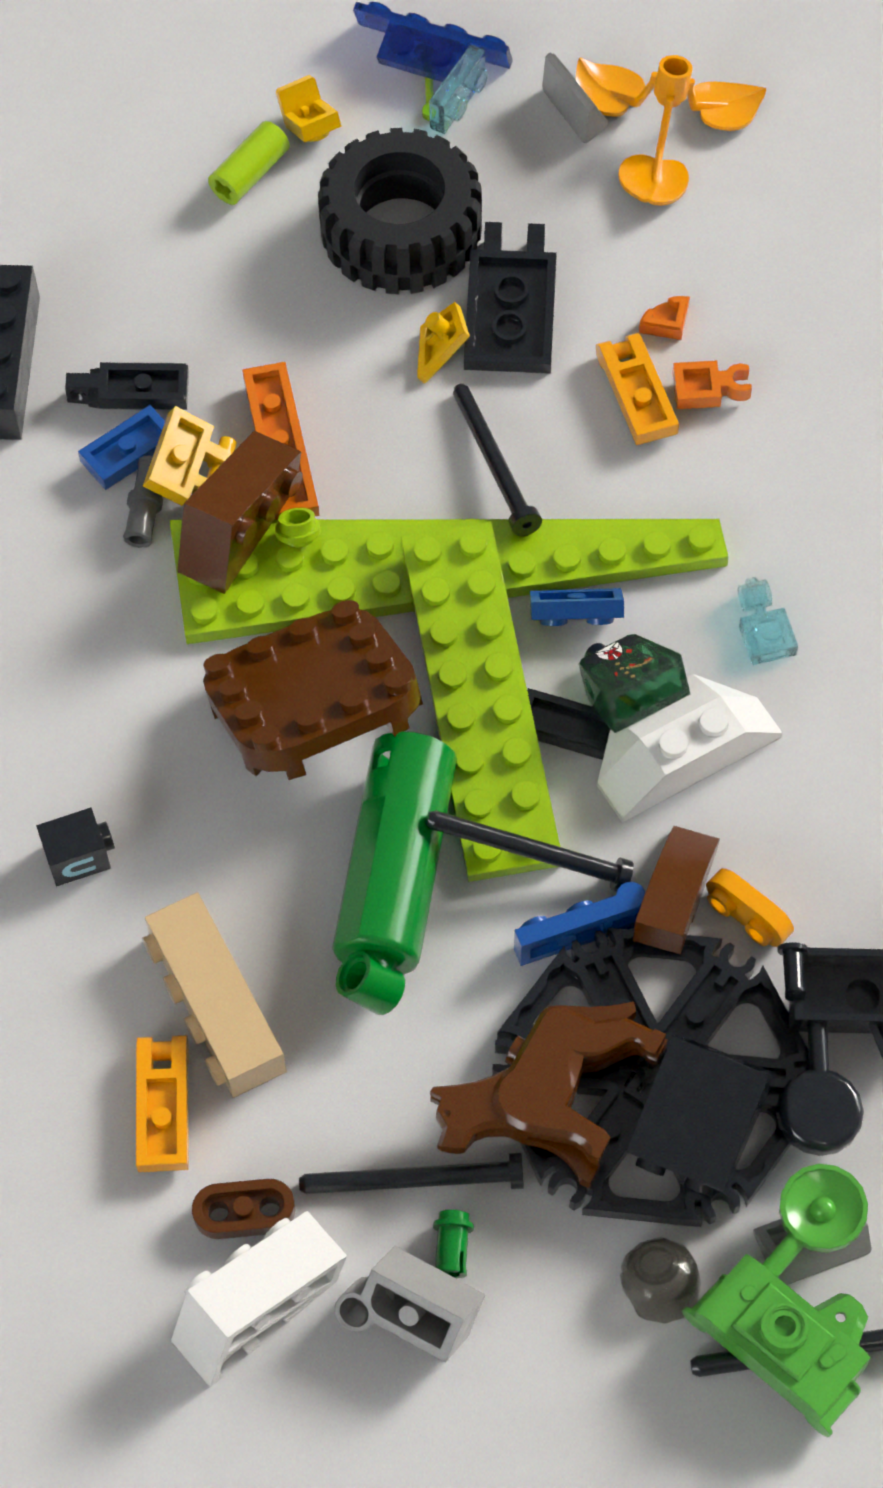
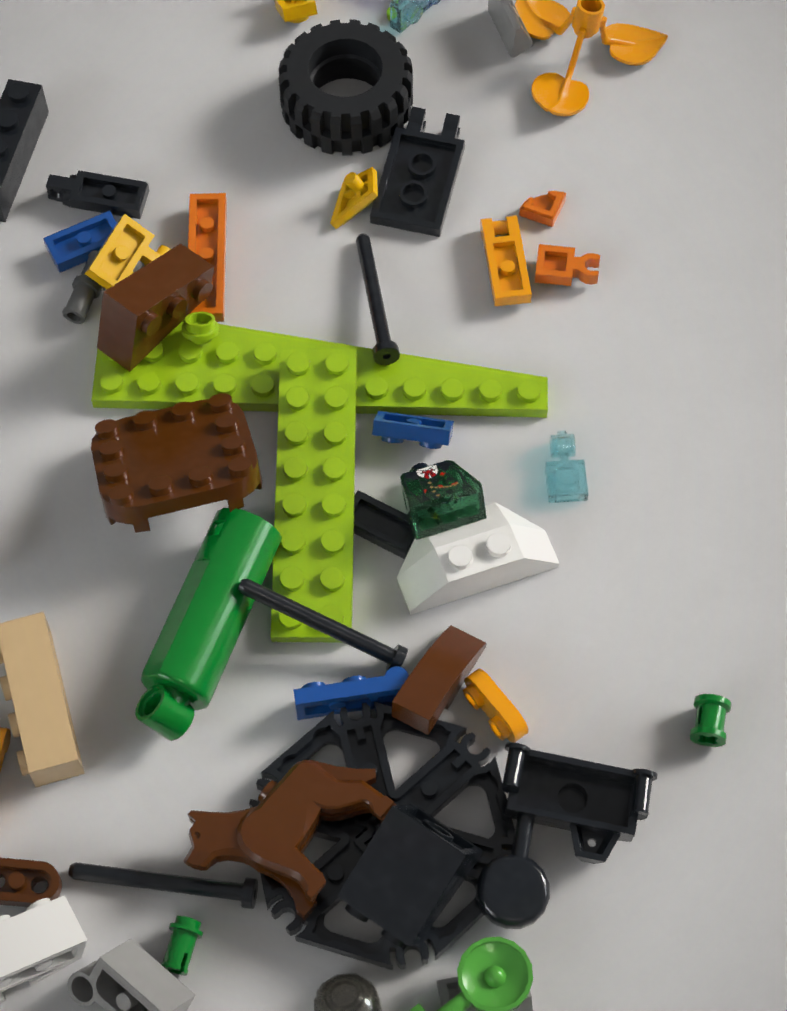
camera: 10 degrees right, 0 degrees up
(249, 162) = (237, 31): lime piece -> none

